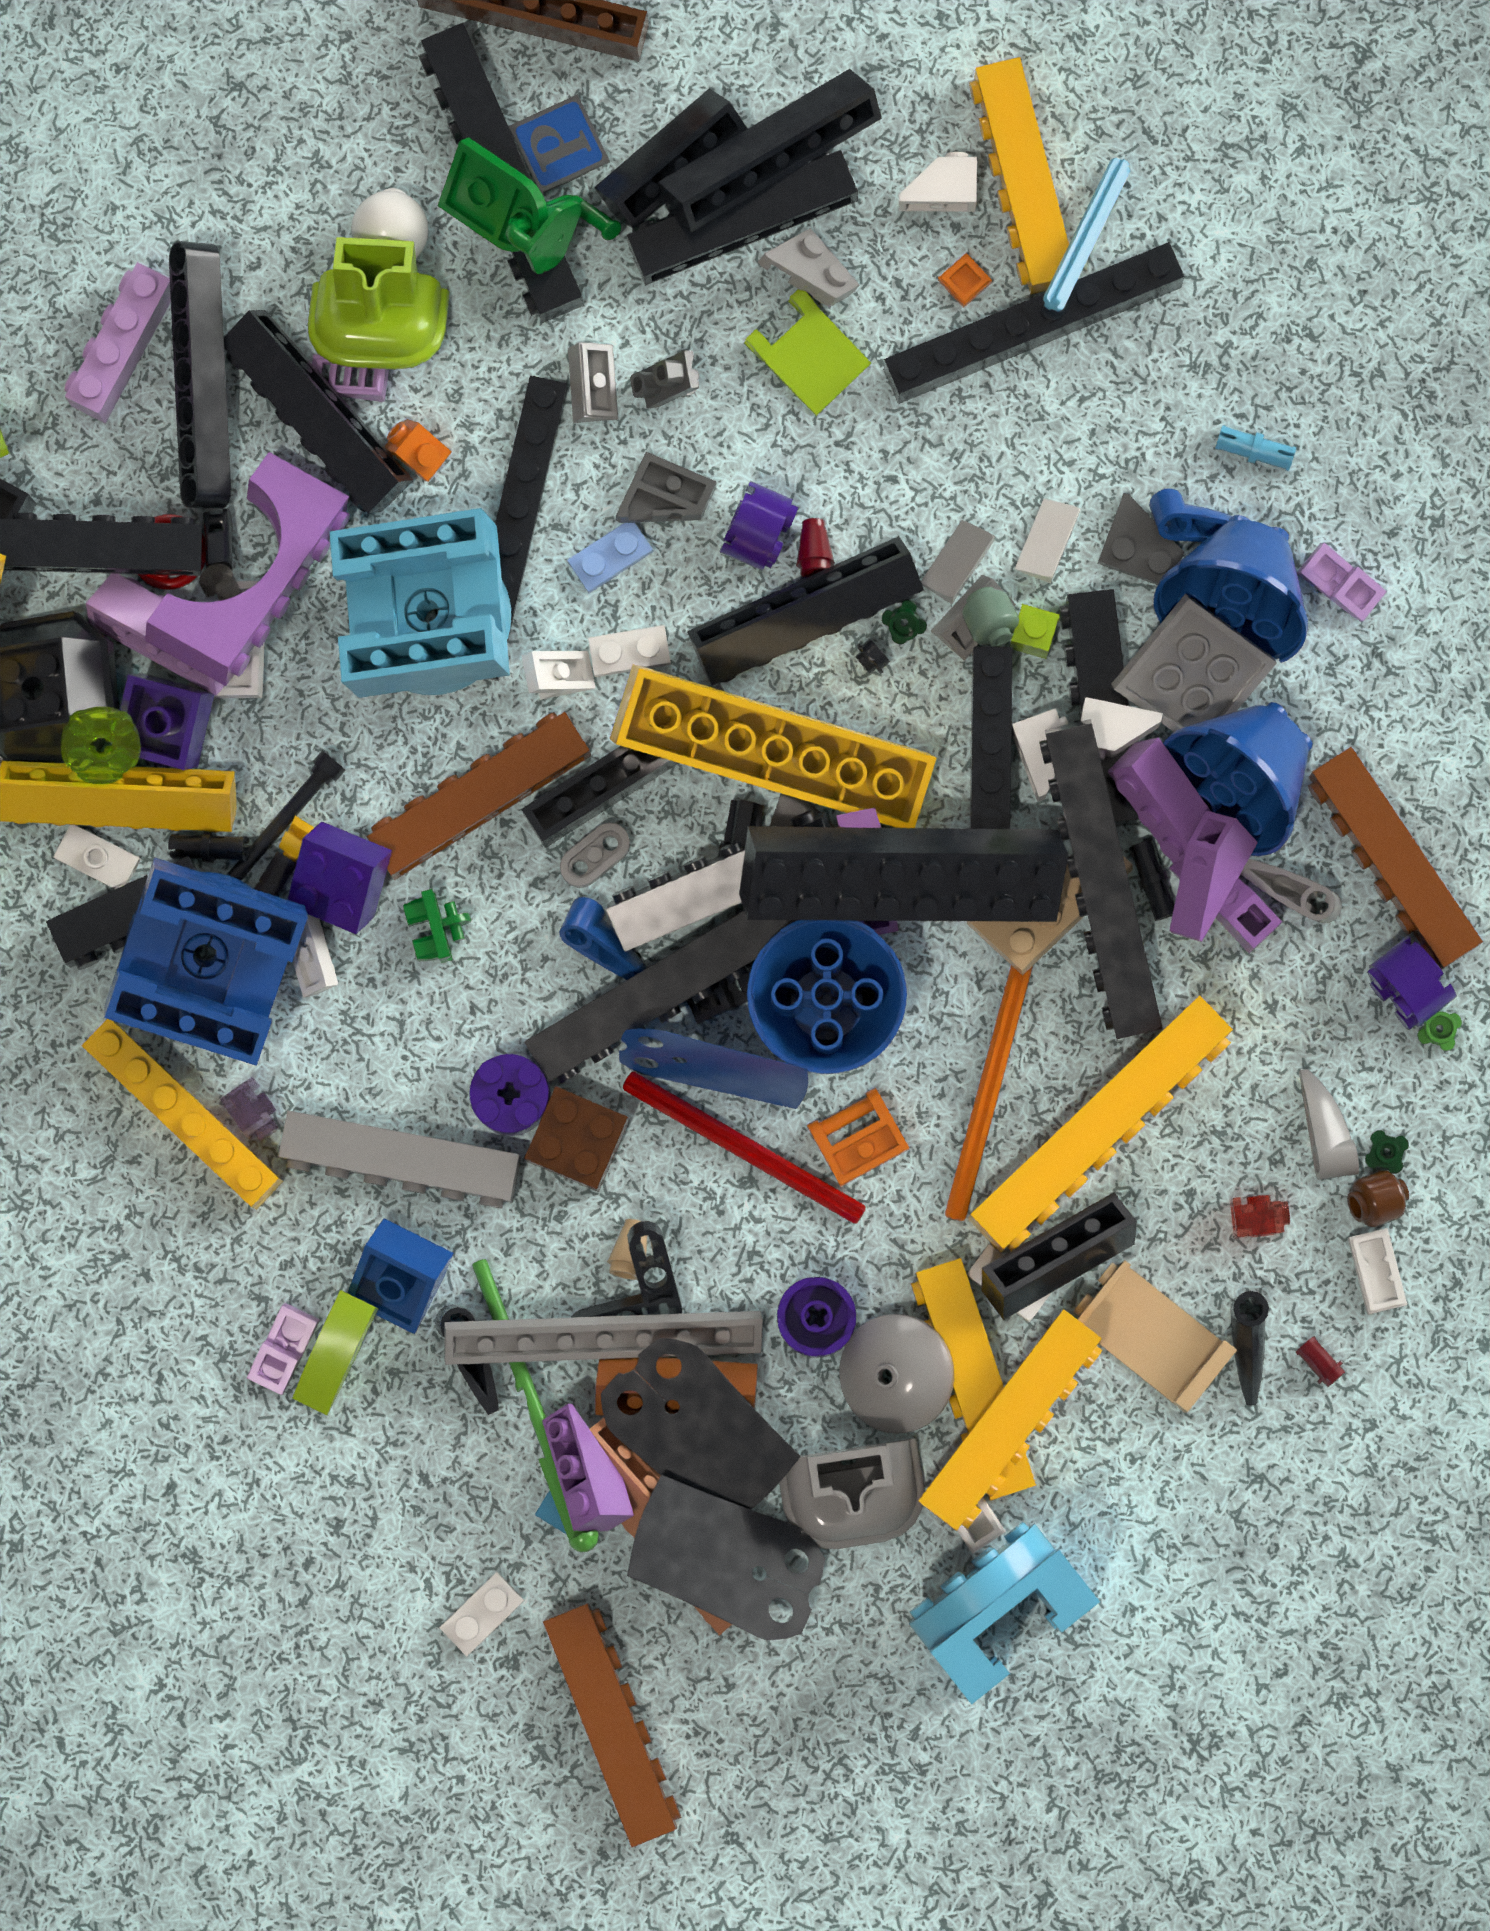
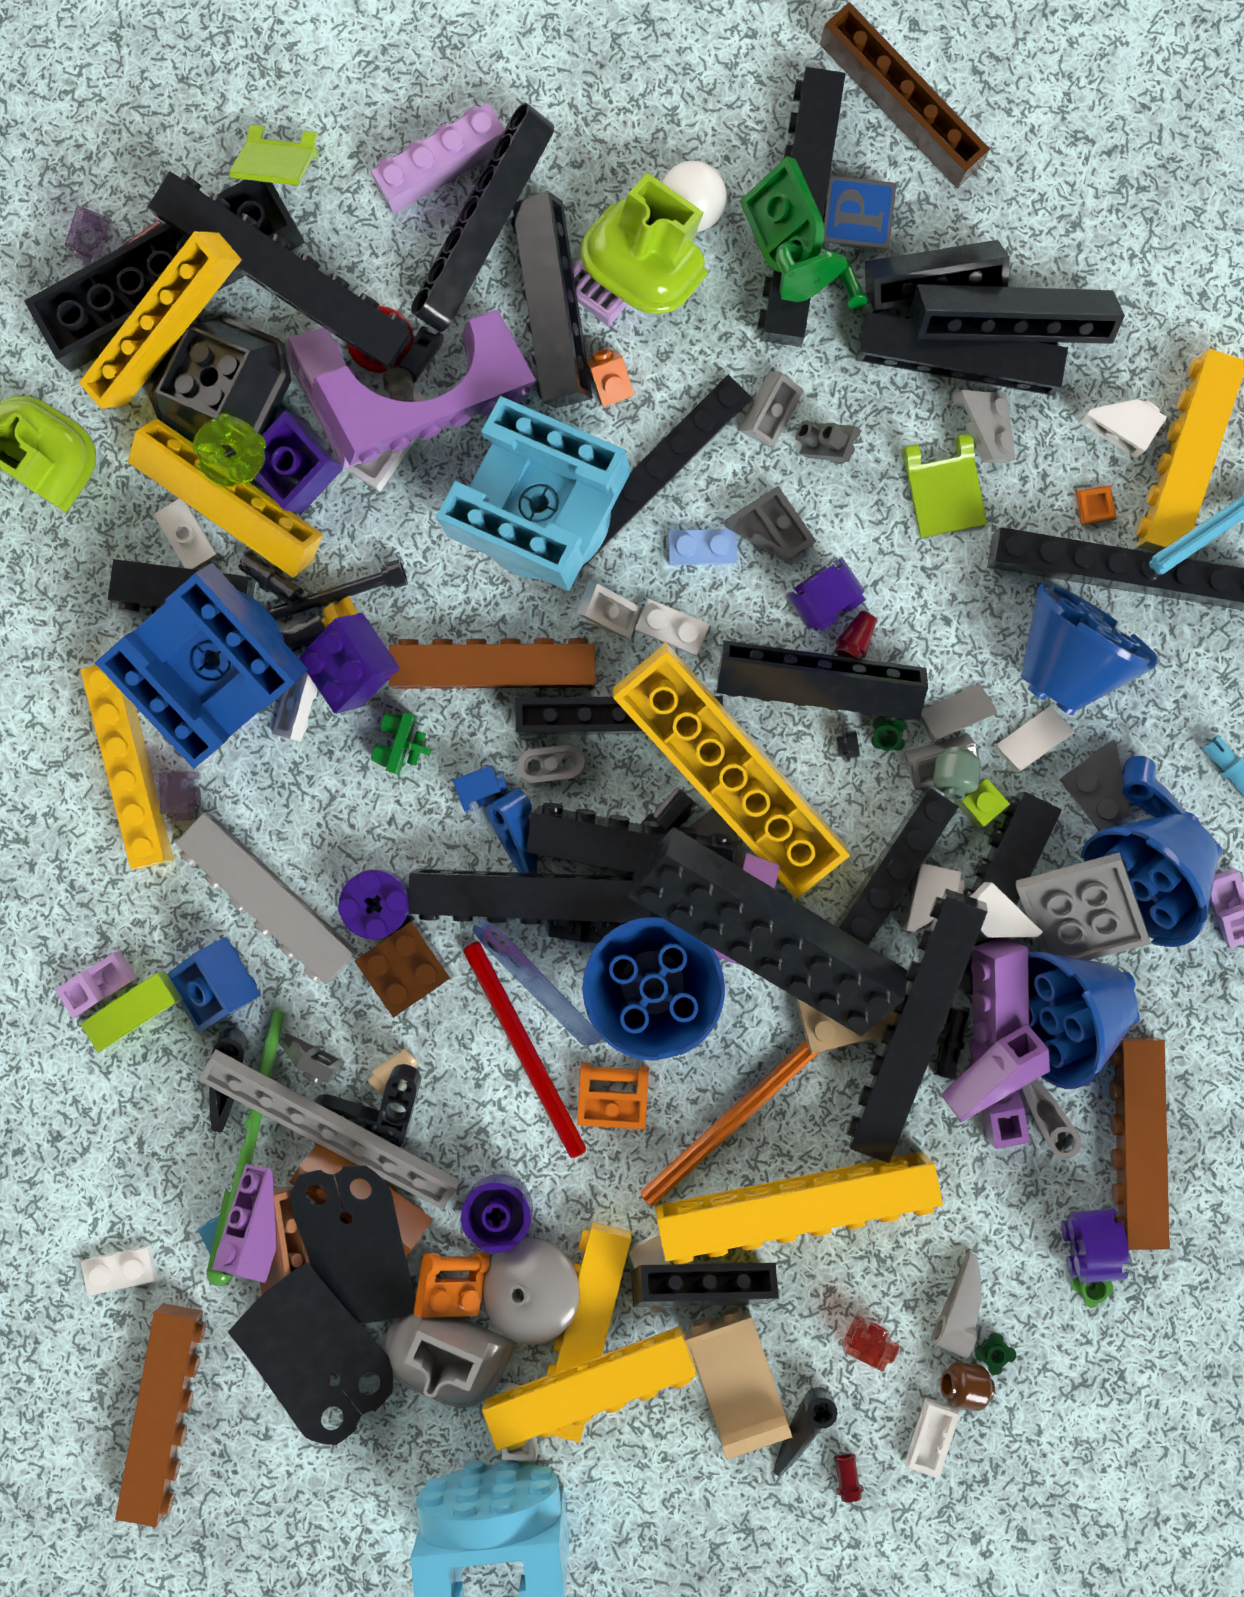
camera: 25 degrees right, 5 degrees up
(540, 920) = (480, 787): none -> blue brick
(552, 1282) = (315, 1063): none -> dark grey wing
(819, 1426) = (450, 1295): none -> orange plate
(1031, 431) = (1078, 652): none -> blue cone

